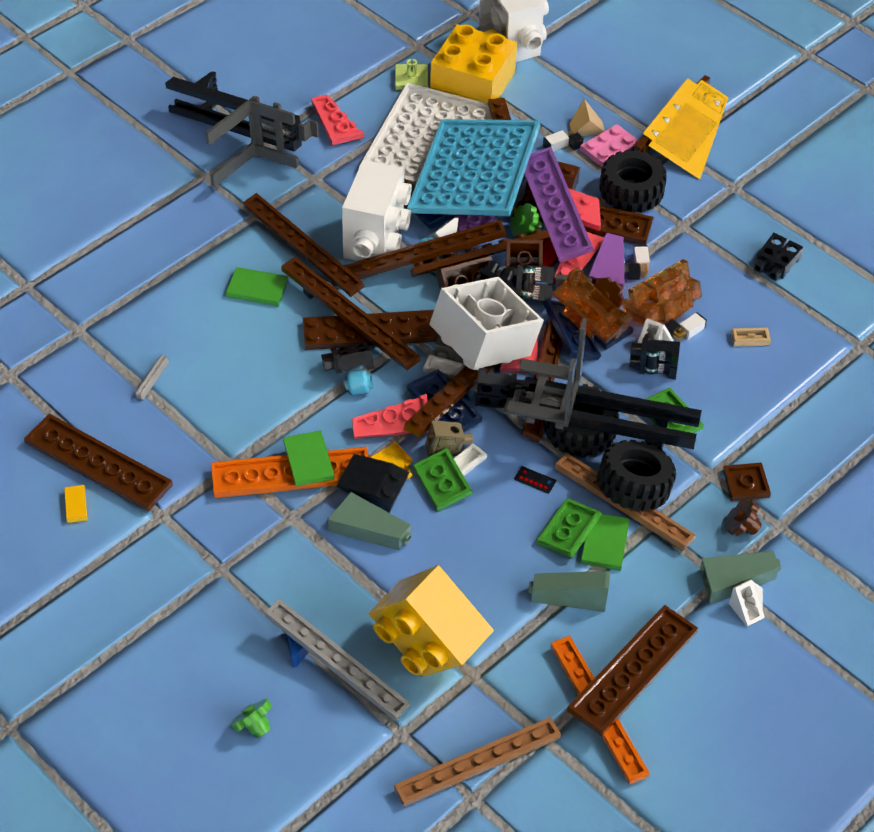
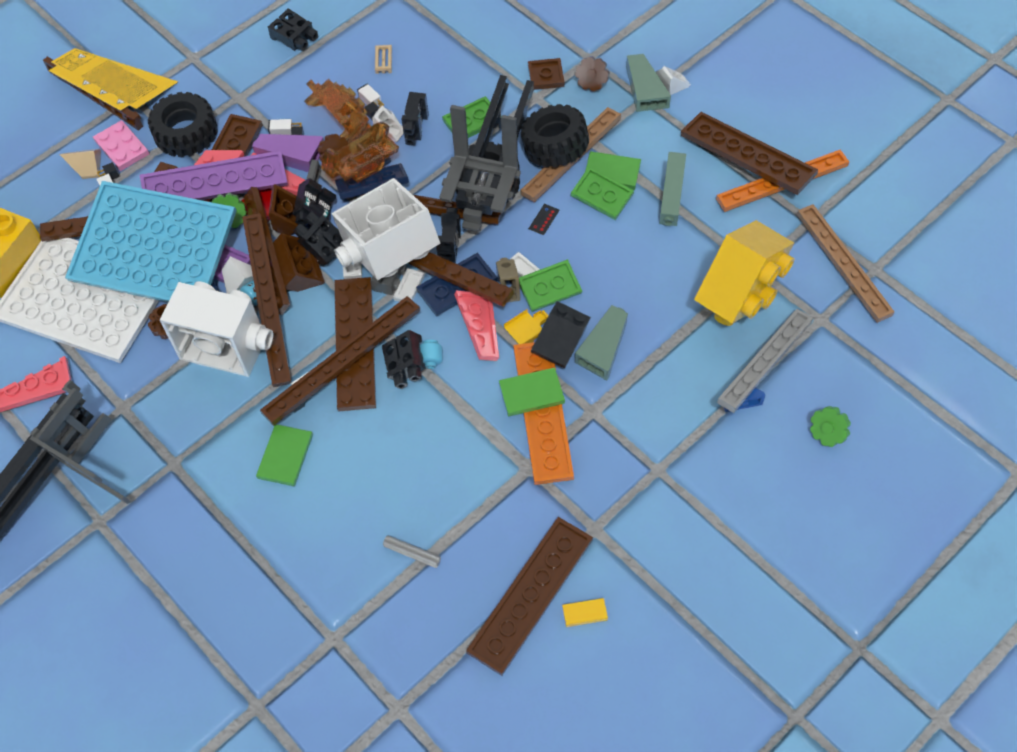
camera: 85 degrees left, 10 degrees up
(304, 245) = (231, 409): reddish brown plate -> none

